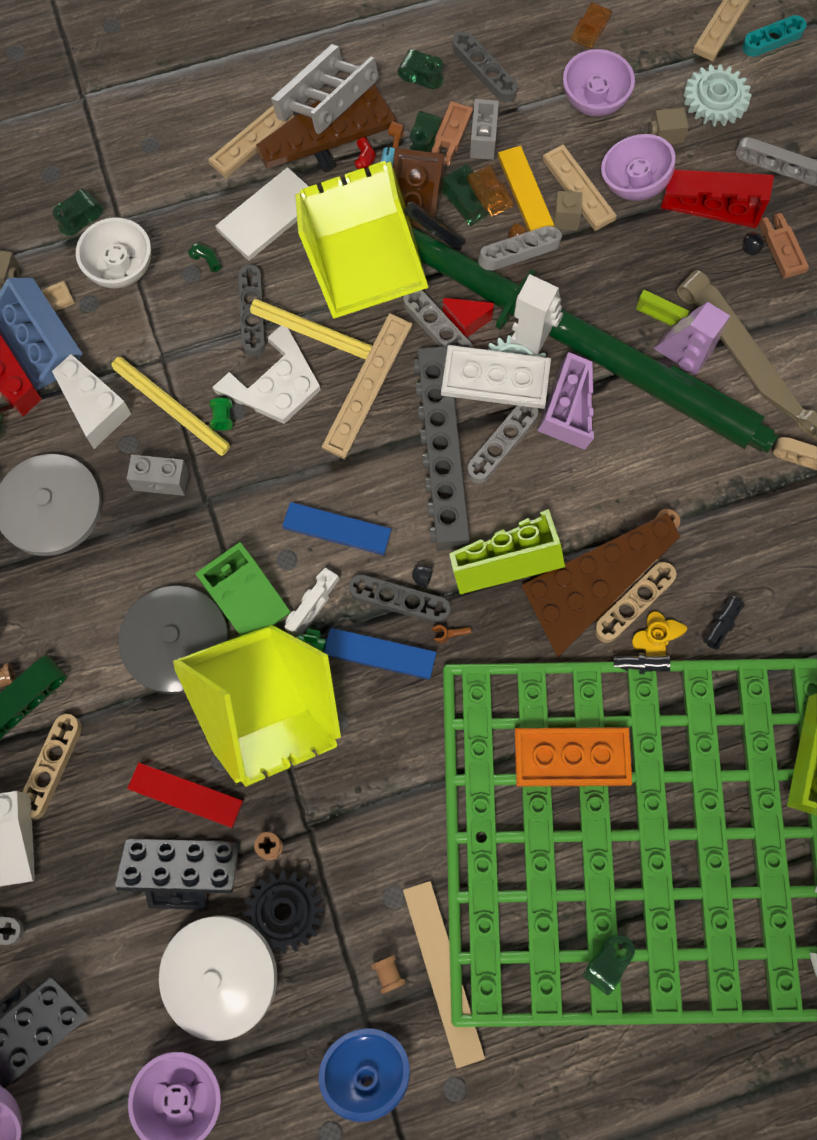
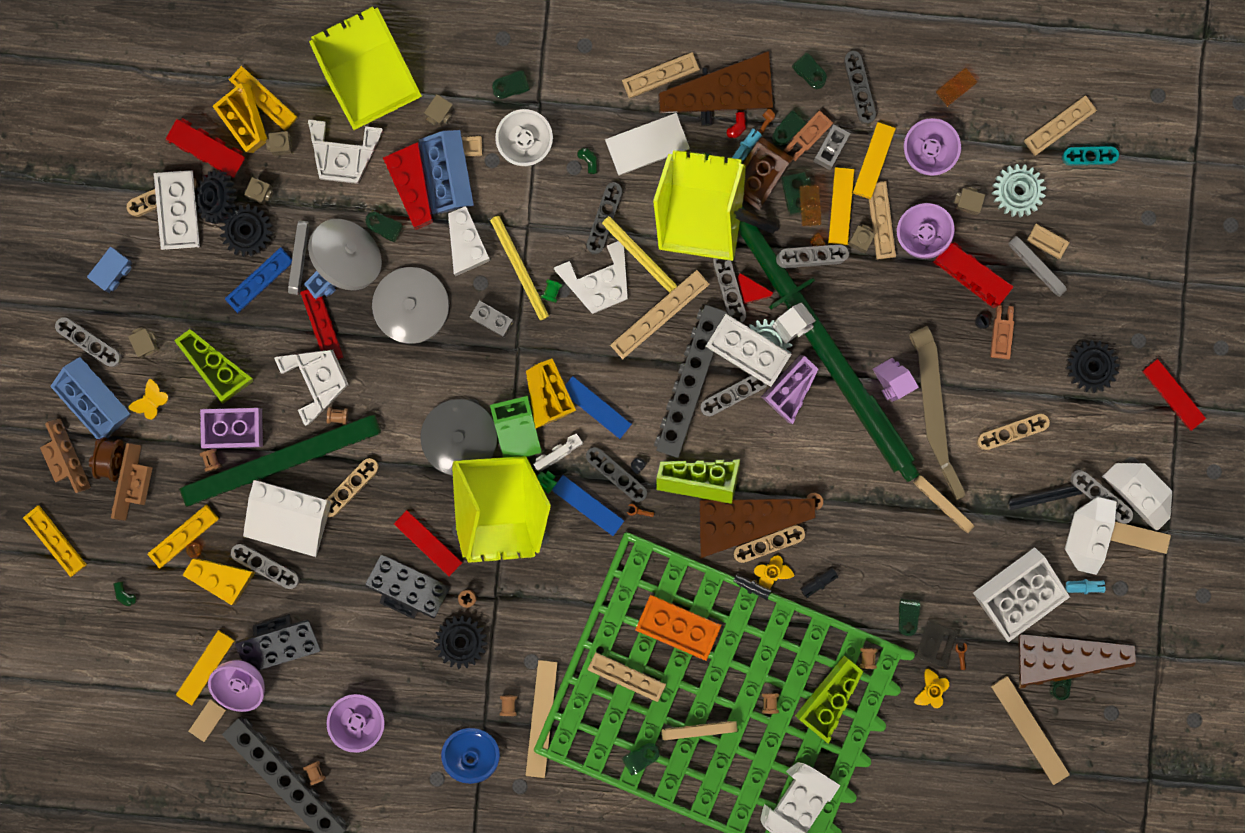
camera: 25 degrees right, 15 degrees up
(218, 977) = (406, 663): white dish -> none
(267, 532) = (548, 394): none -> yellow wedge
(315, 76) = (729, 47): light grey fence -> none
(534, 856) = (626, 677): none -> tan tile
(539, 128) = (874, 160): none -> yellow tile
(660, 308) = (890, 346): lime tile -> none
(670, 886) = (699, 730): none -> tan beam
(746, 803) = (770, 703): none -> medium nougat bush
(779, 134) = (1047, 241): none -> tan tile

